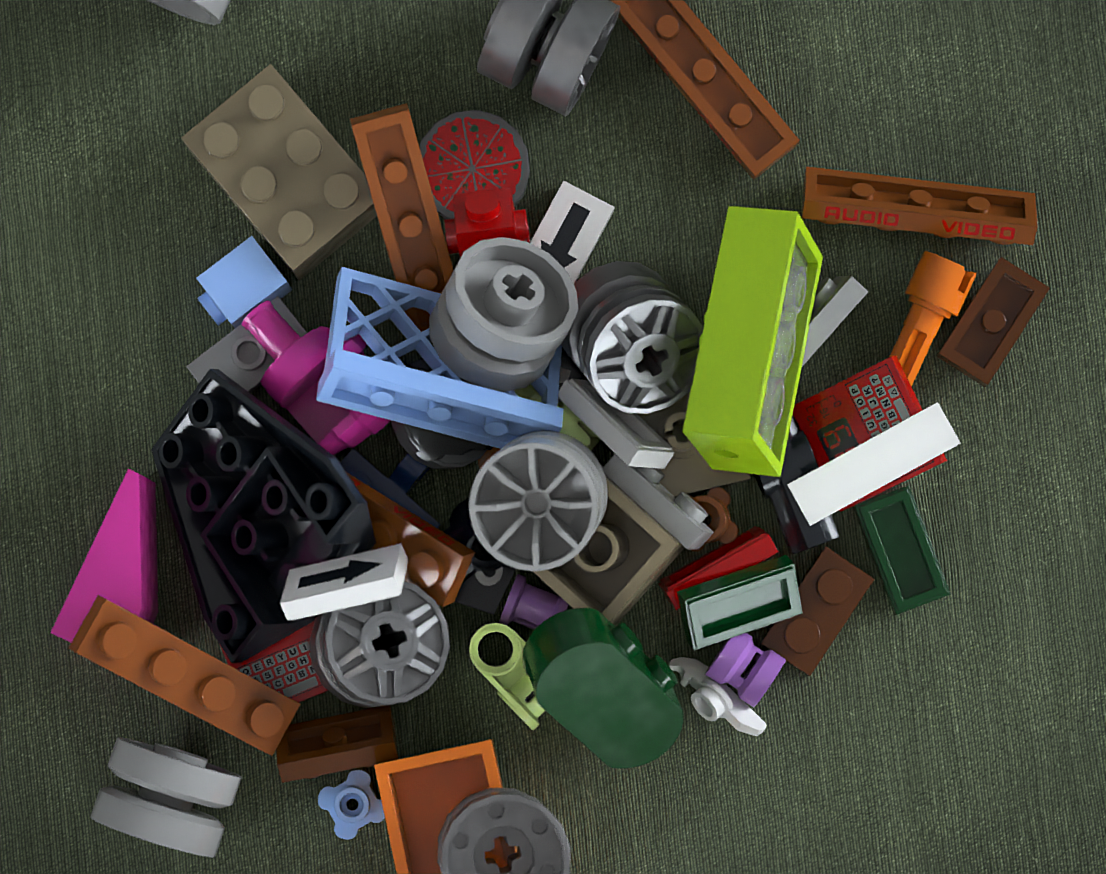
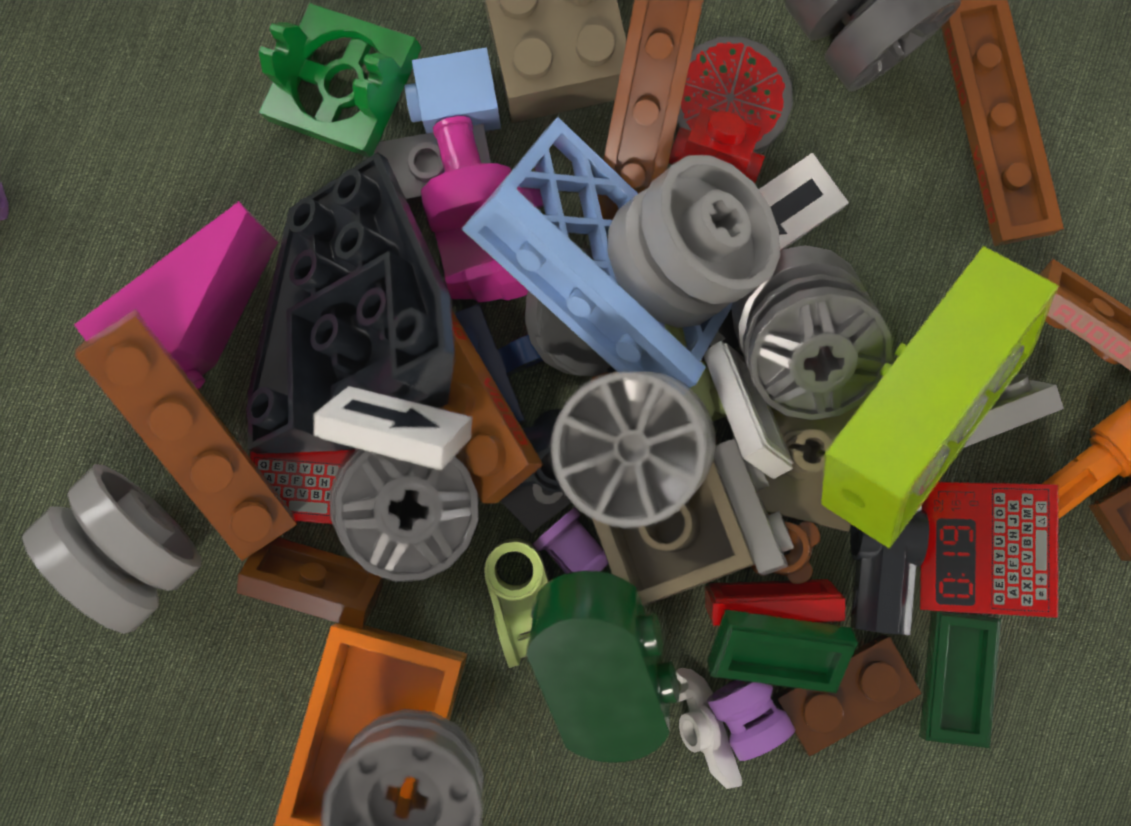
camera: 25 degrees right, 0 degrees up
(178, 320) = (372, 95): none -> green piece
(336, 798) = (284, 634): light blue plate -> none
(874, 463) = (987, 583): white sticker -> none

